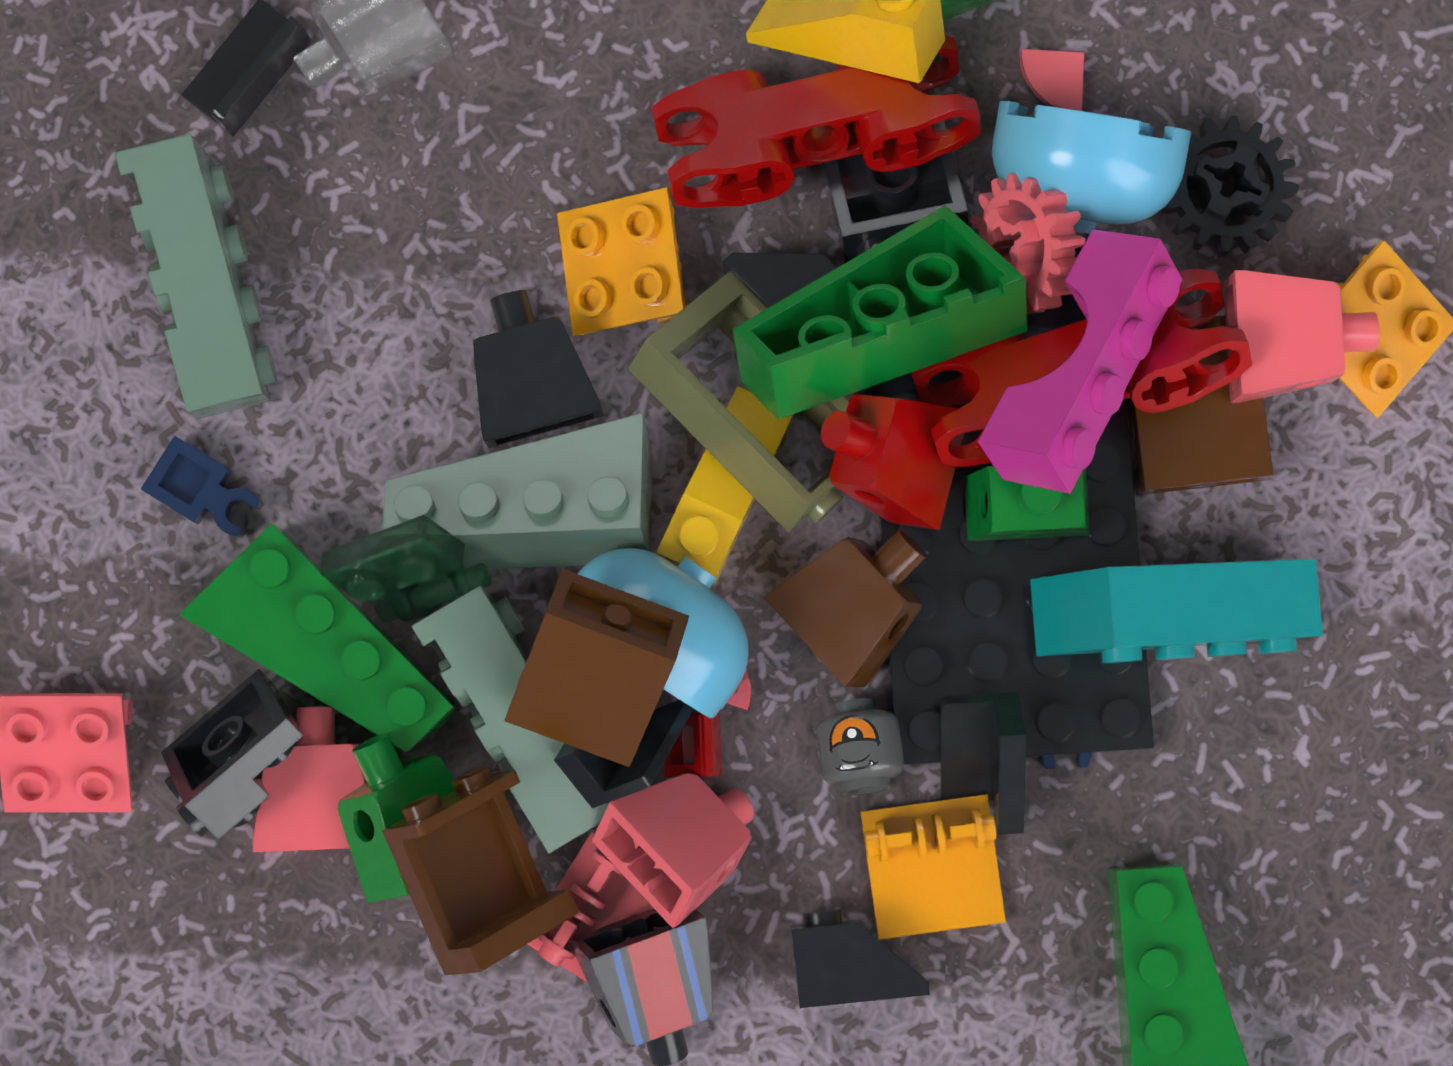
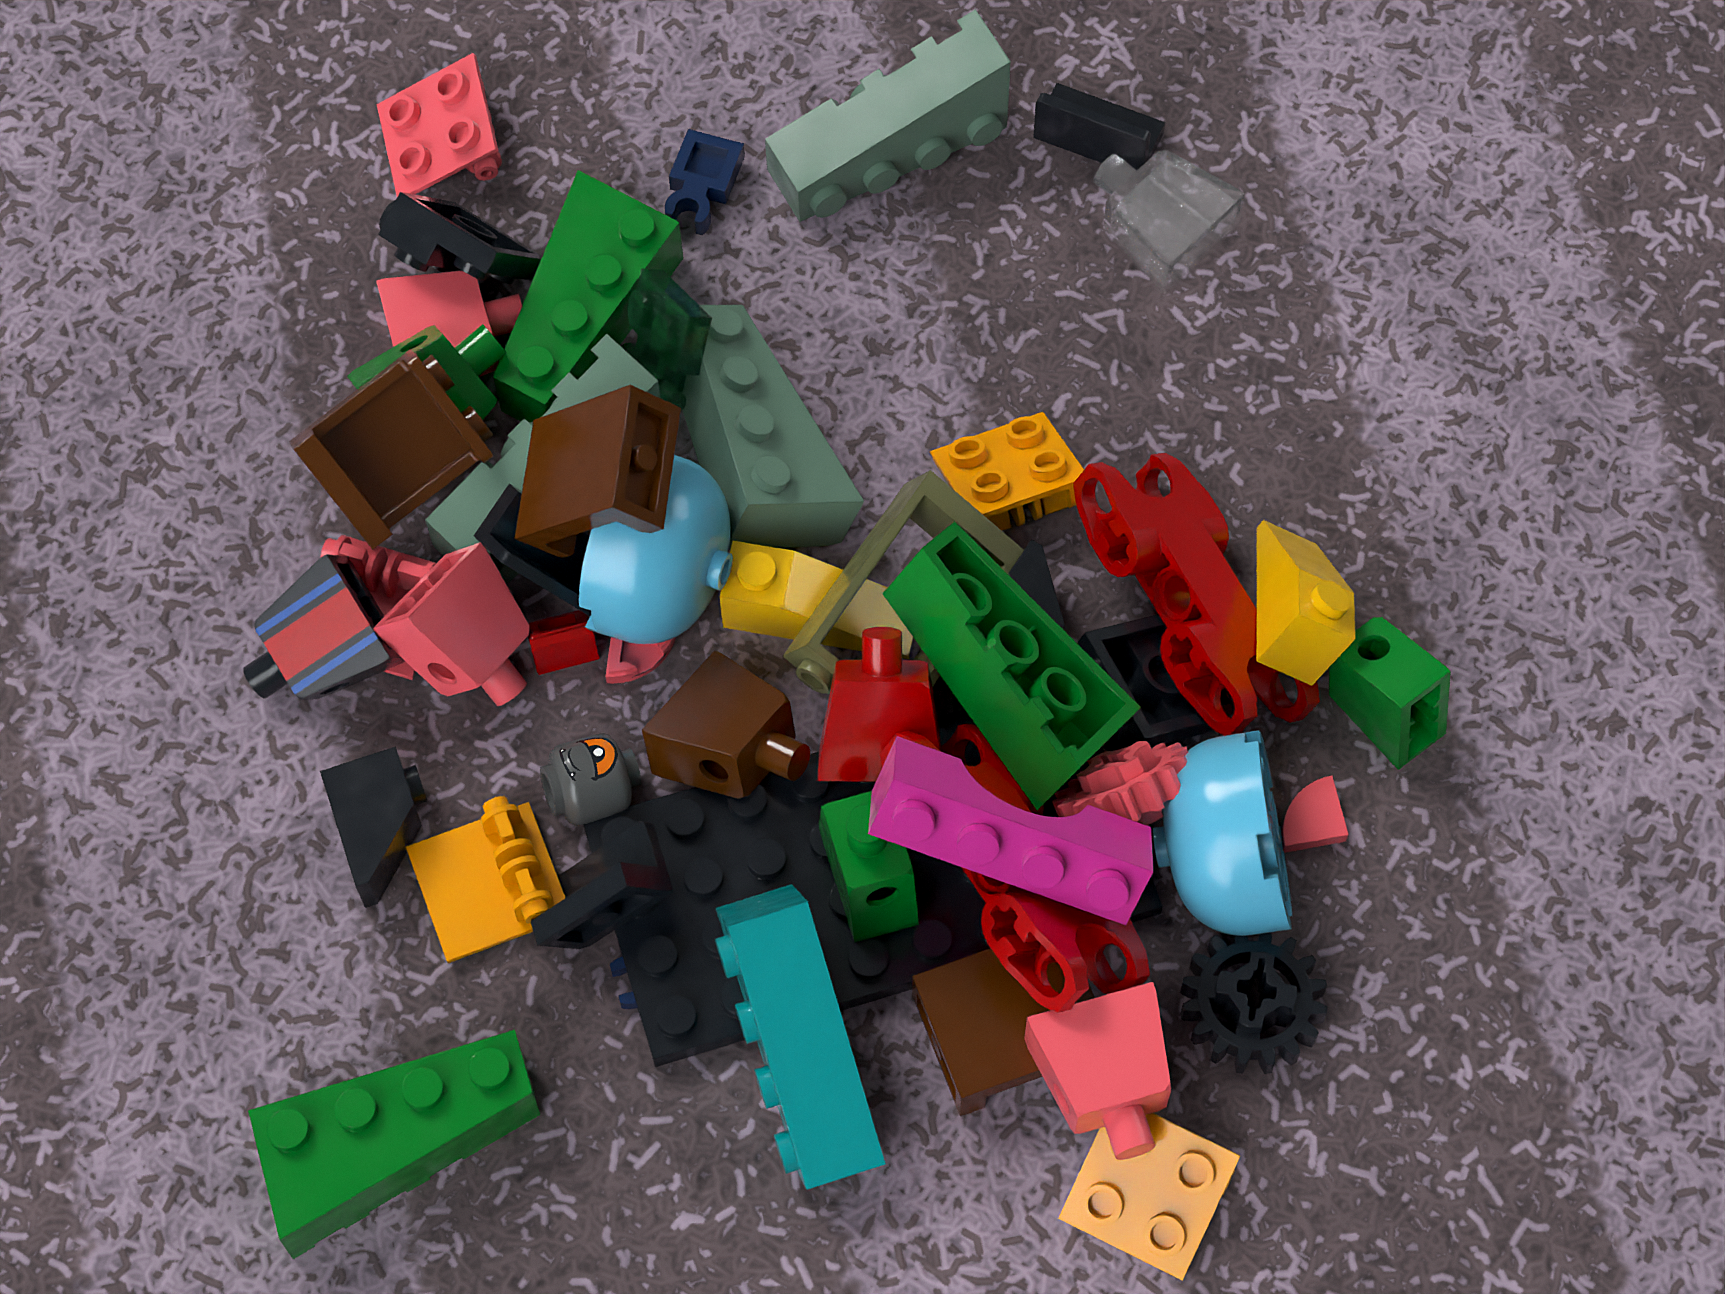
camera: 75 degrees right, 20 degrees down
(529, 375) = (877, 413): black torso -> none

